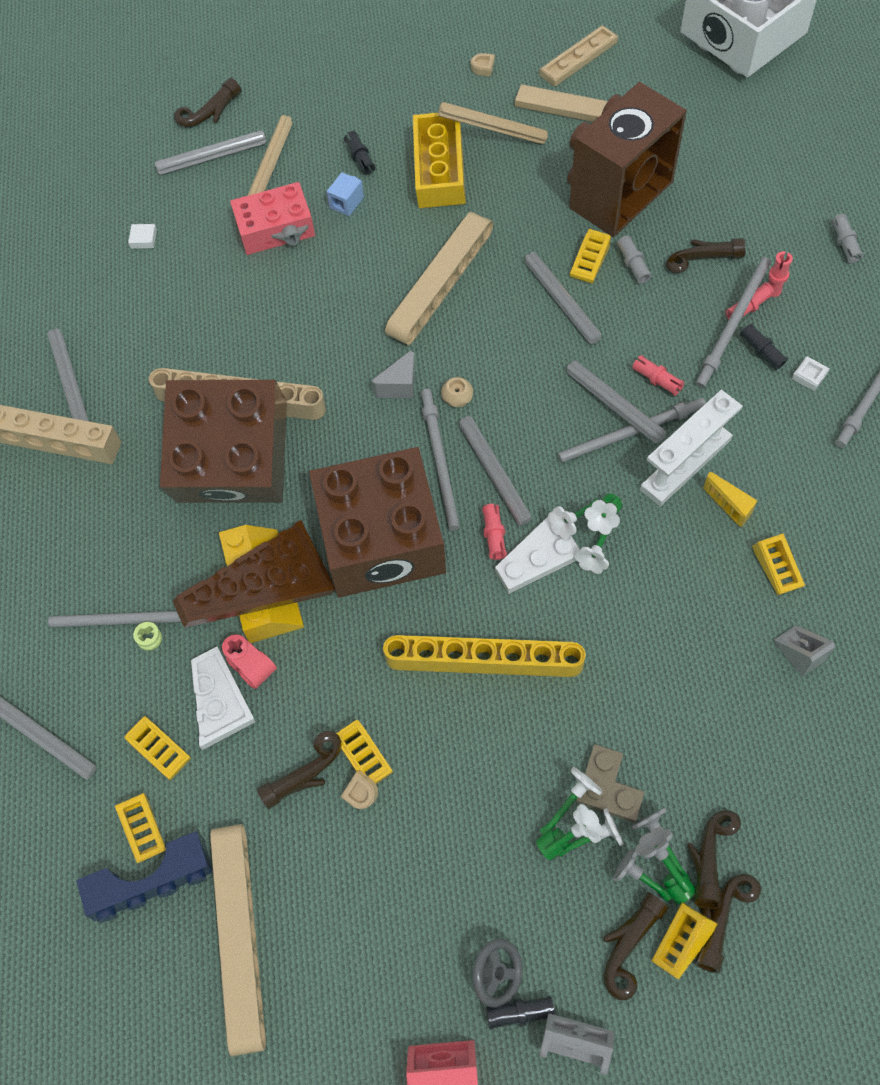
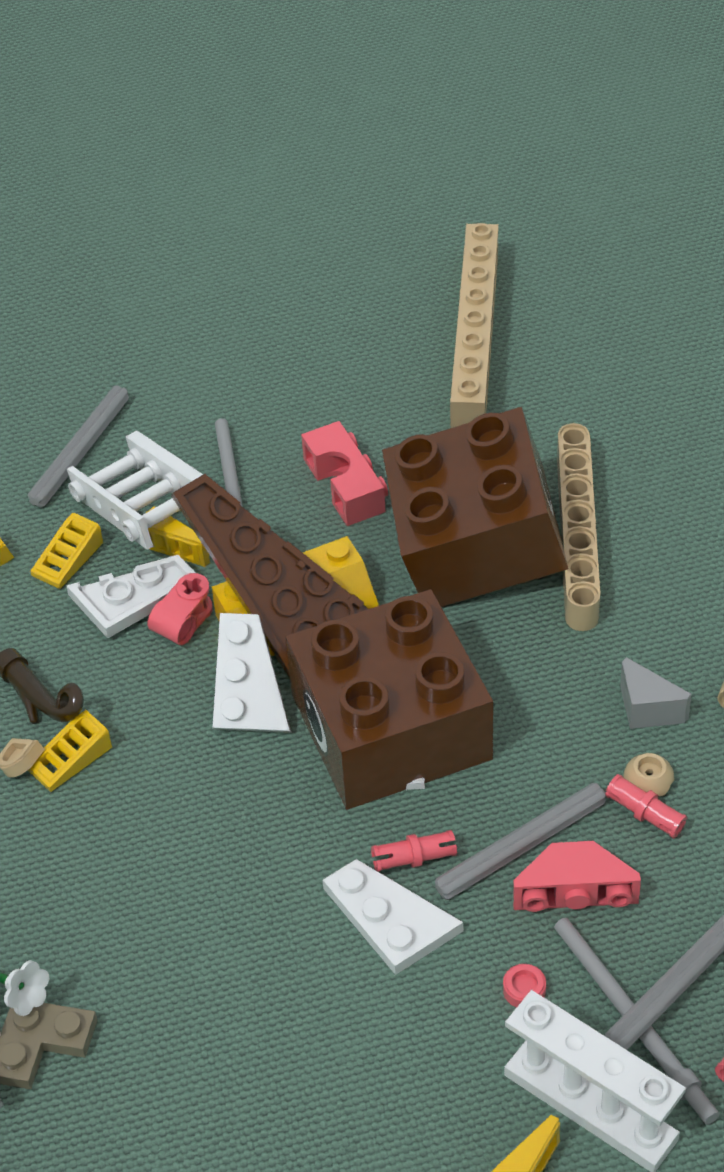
camera: 80 degrees right, 15 degrees down
(67, 375) = (562, 358): light grey axle -> none
(97, 663) = (155, 465): none -> white fence
(116, 538) = (356, 489): none -> coral arch
(169, 663) = (176, 538): none -> yellow slope
(331, 617) = (245, 678): none -> white wing
(430, 415) = (598, 748): light grey bar -> none
(482, 396) = (646, 806): none -> coral pin
(496, 664) = (208, 777): yellow beam -> none
(532, 442) = (575, 878): none -> coral slope
(601, 484) = (520, 981): none -> coral tile
(601, 517) = (474, 985): white plant -> none

